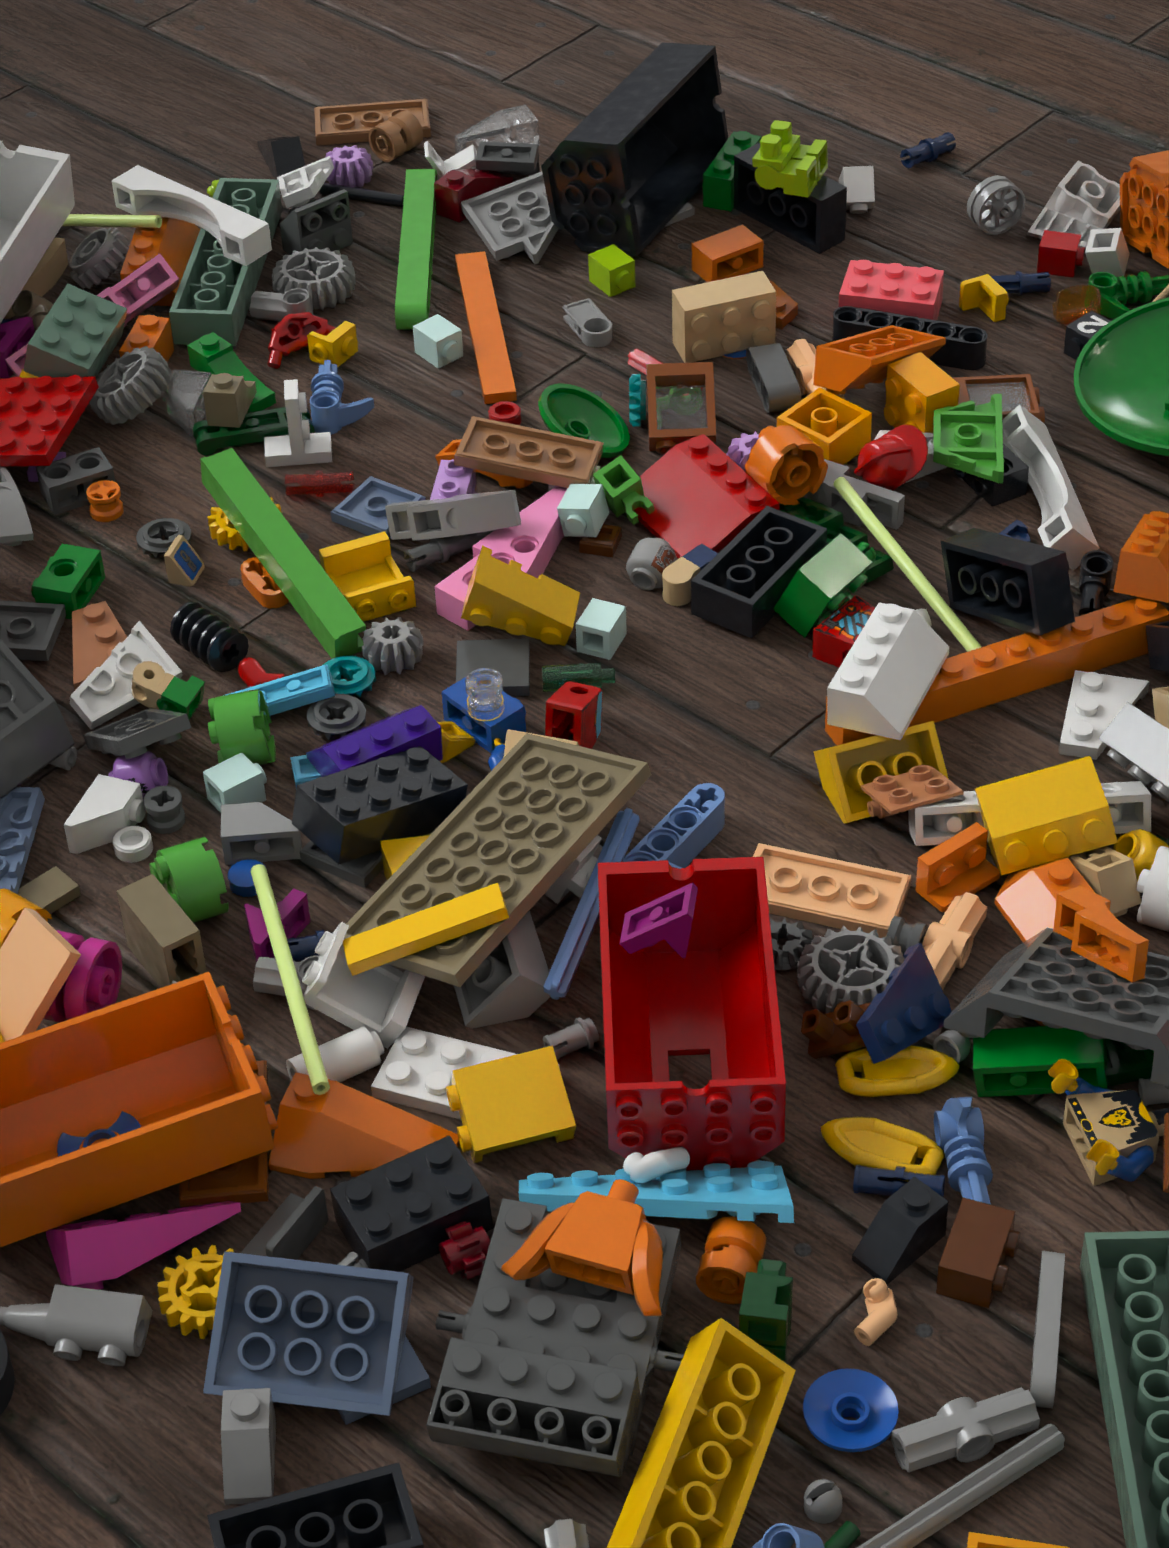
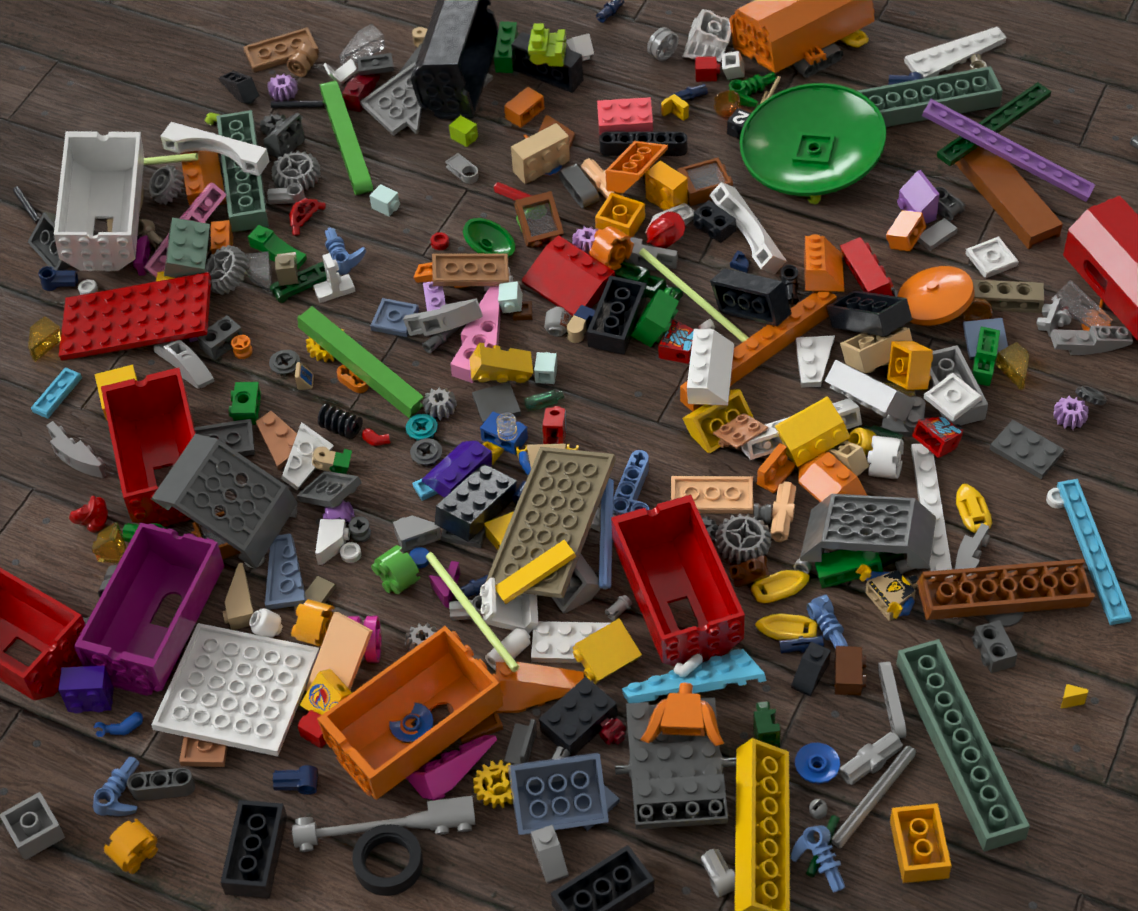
camera: 15 degrees left, 10 degrees up
(160, 932) = (395, 604): dark tan brick -> none
(235, 782) = (391, 506): light aqua brick -> none
(242, 726) = (383, 475): bright green brick -> none
(296, 689) = (391, 448): medium azure tile -> none
(305, 182) = (264, 106): white wing -> none
(319, 483) = (356, 308): clear red pin -> none
(336, 346) = (328, 217): yellow bracket -> none
(369, 576) = (409, 363): yellow panel -> none
(485, 328) = (405, 183): orange tile -> none
(623, 489) = (527, 280): bright green brick -> none
(637, 400) = (512, 218): teal gear -> none
(661, 919) = (659, 544): magenta slope -> none
(729, 1253) = (738, 704): orange wheel -> none
(880, 1309) = (813, 709): light nougat arm -> none
(906, 1009) = (779, 553): dark blue wing -> none
(971, 438) = (702, 208): bright green wing -> none
(1099, 934) = (860, 495): orange slope -> none

